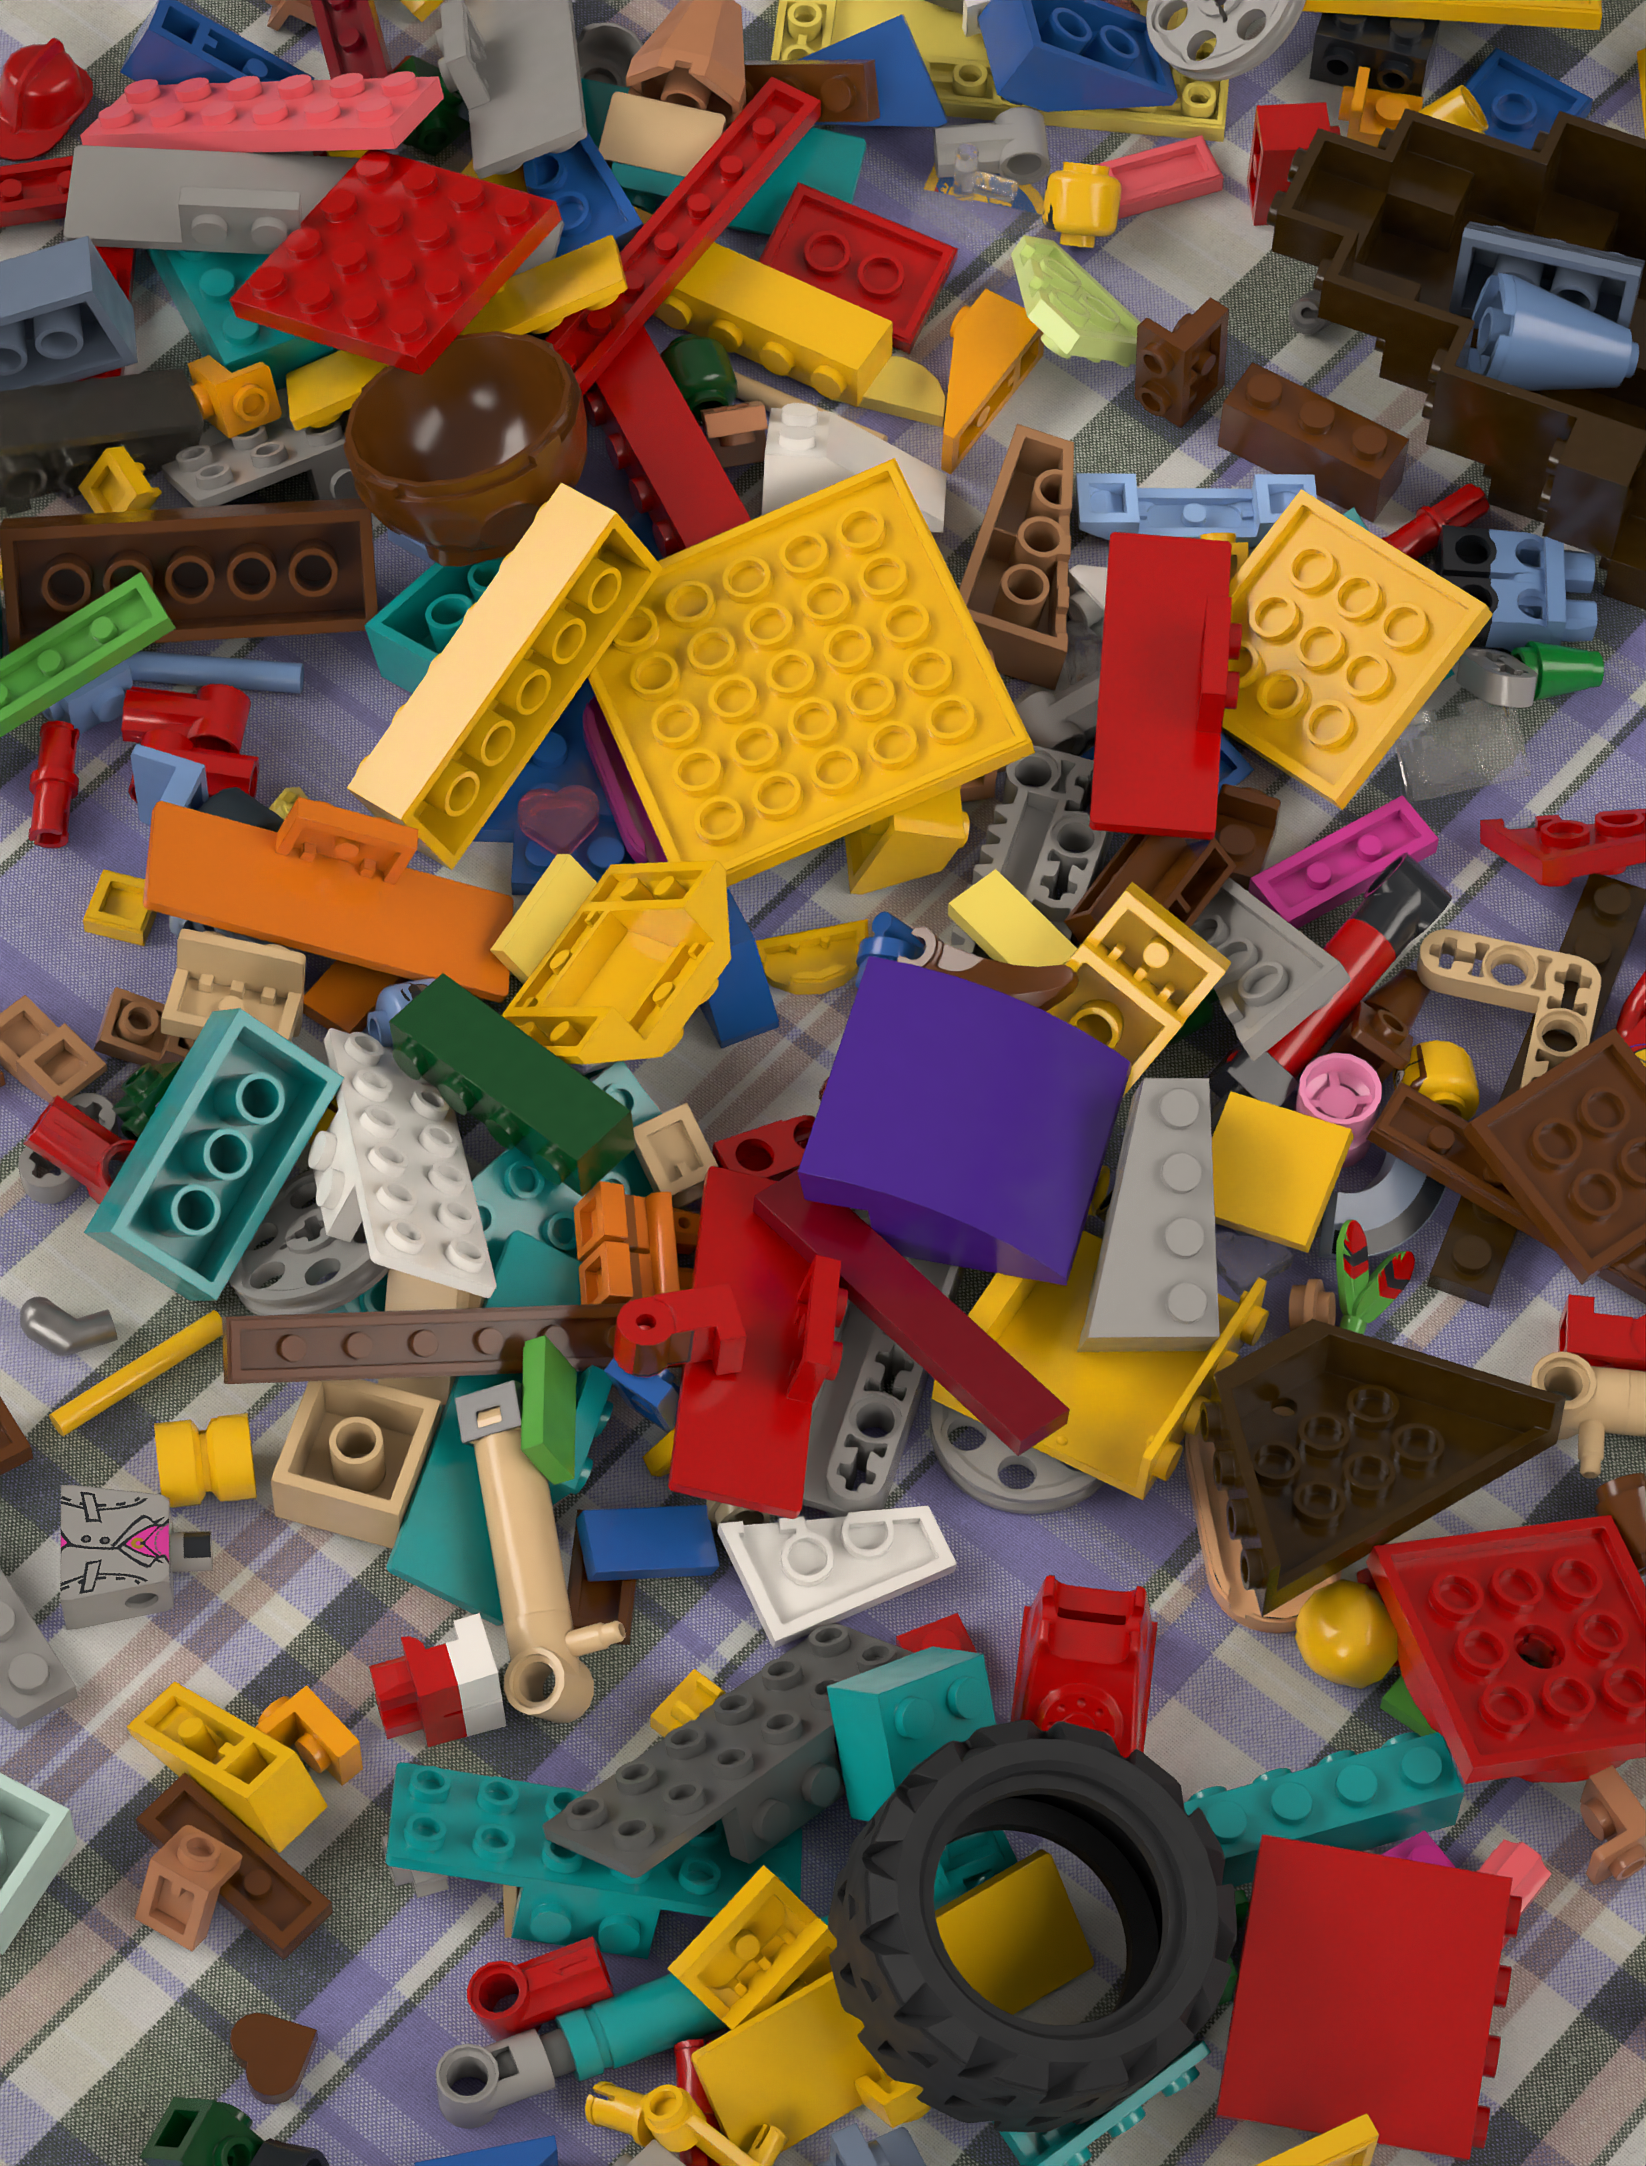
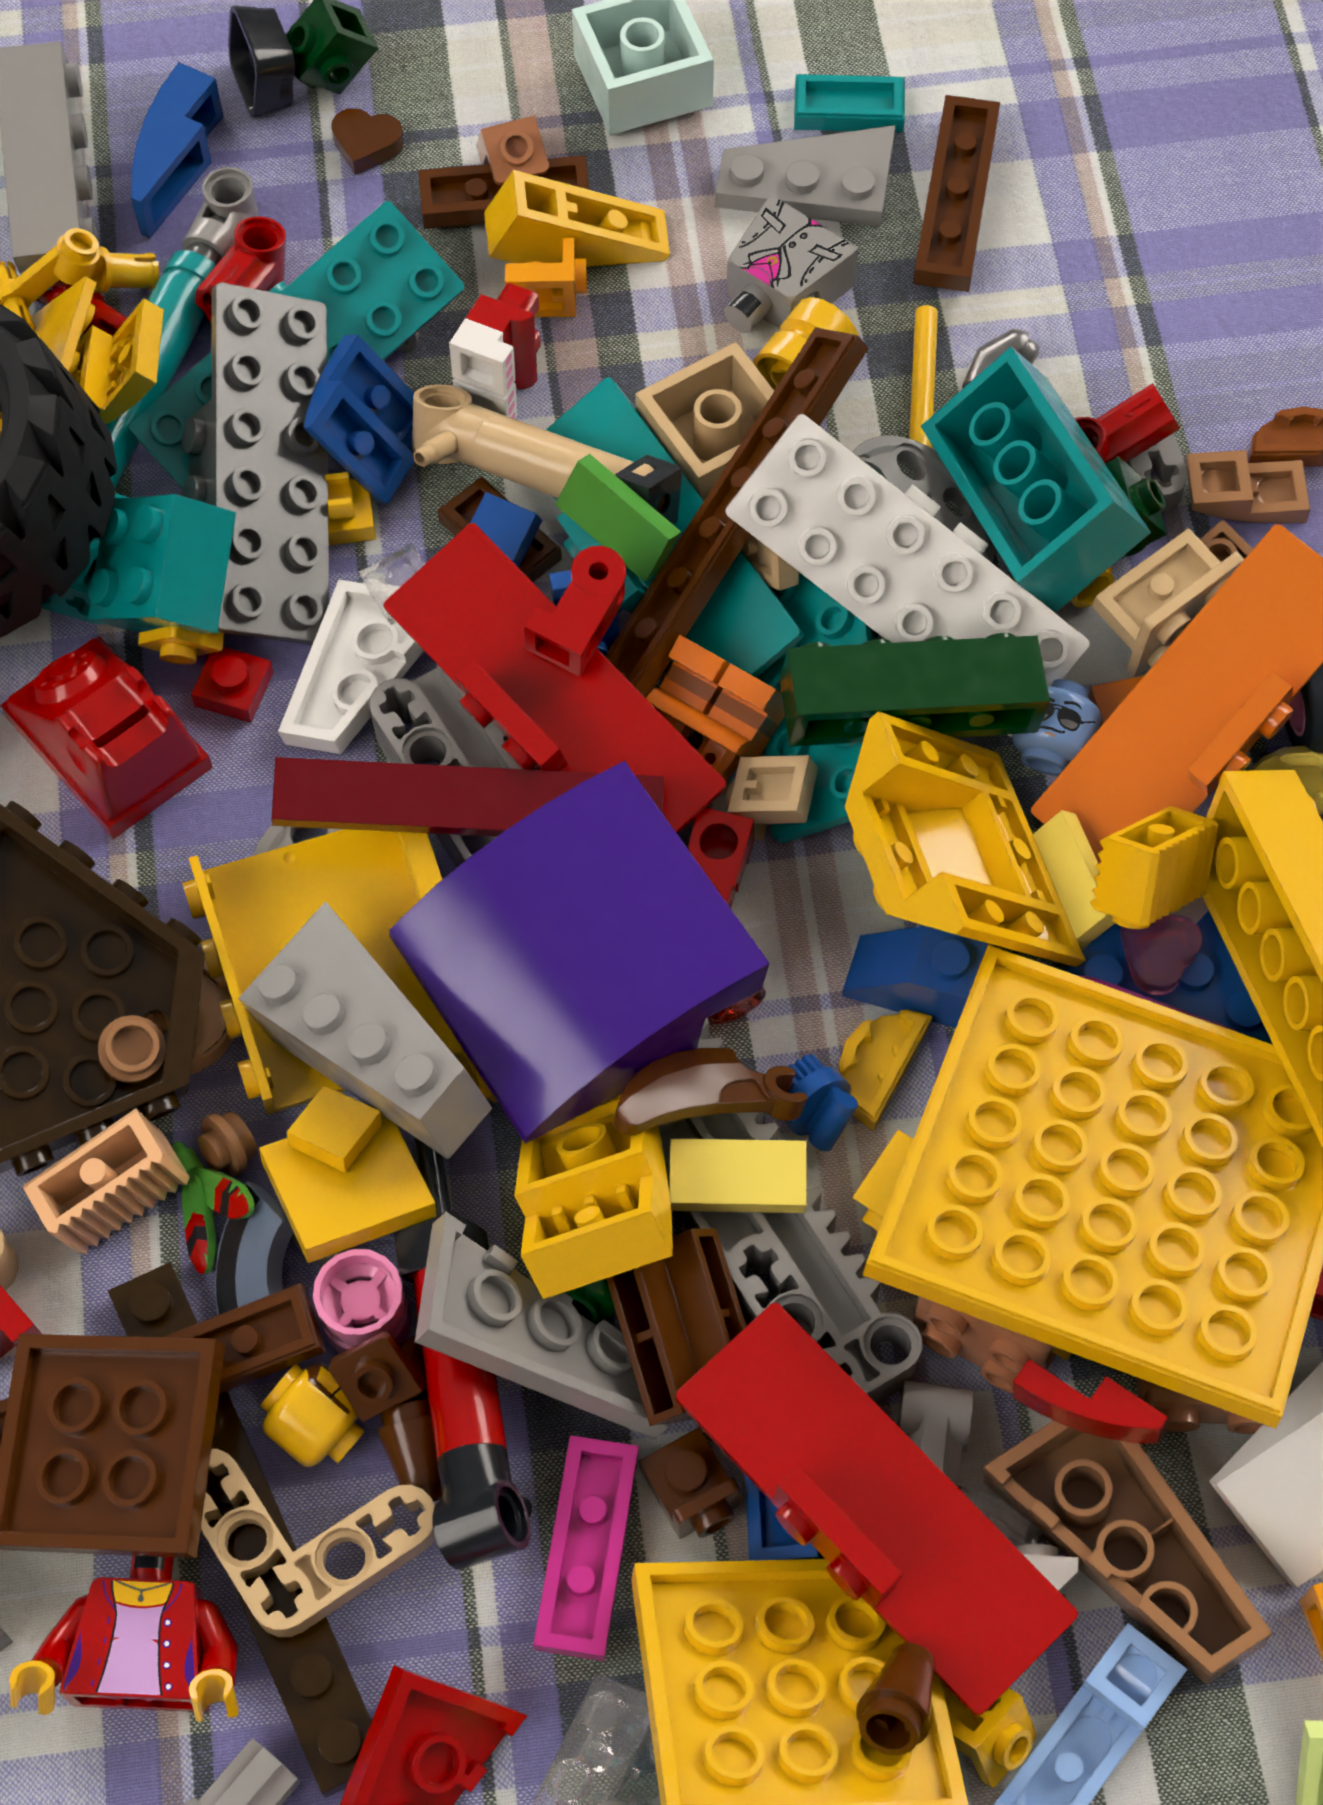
camera: 135 degrees right, 5 degrees up
(506, 838) = (1154, 867): none -> yellow brick
(626, 1727) = (363, 417): none -> blue slope
(743, 1567) = (390, 574): none -> clear tile
(981, 590) = (1108, 1414): none -> red slope
(1245, 1202) = (334, 1128): none -> yellow tile
(1274, 569) = (898, 1701): none -> reddish brown cone
(1327, 1378) = (131, 1049): none -> medium nougat plate
(1432, 1324) = (106, 1182): none -> light nougat brick

